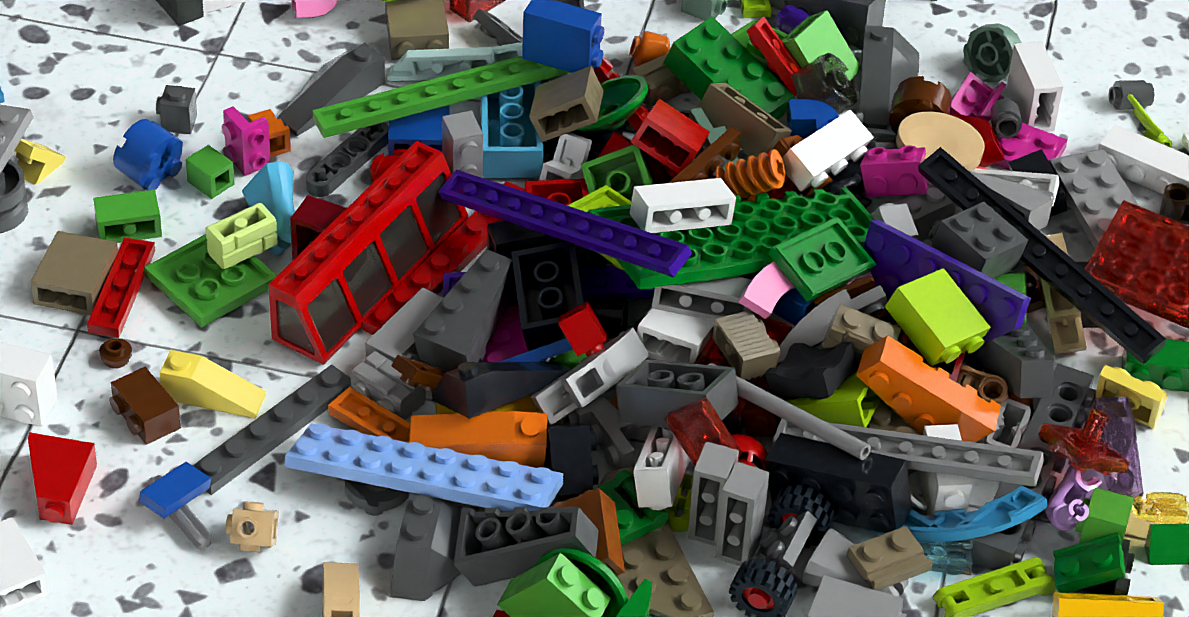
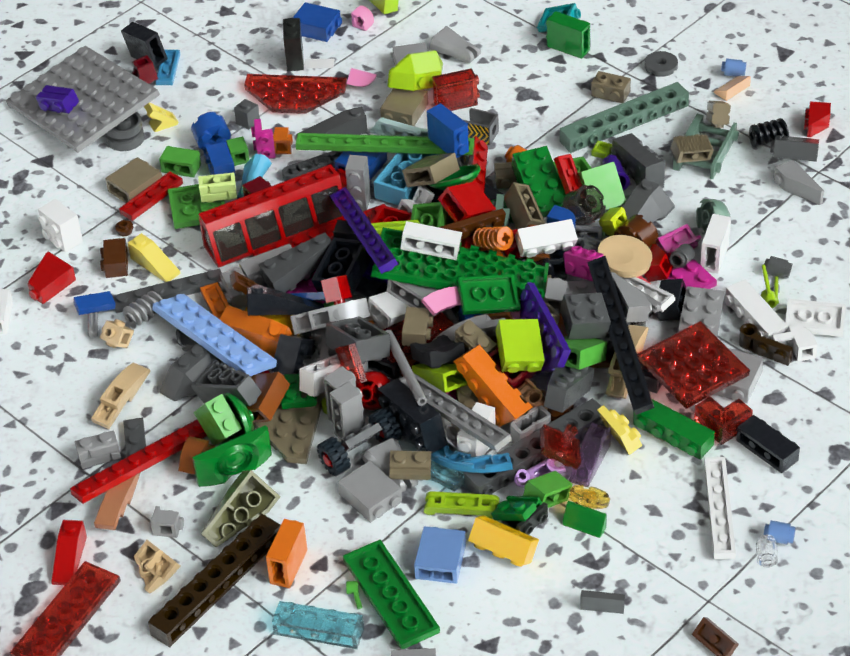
camera: 35 degrees right, 0 degrees up
(193, 195) = (219, 159): none -> blue brick
(220, 55) = (294, 93): none -> clear red plate
(263, 471) = (140, 309): none -> light grey piece
(876, 99) = (612, 220): none -> neon yellow slope

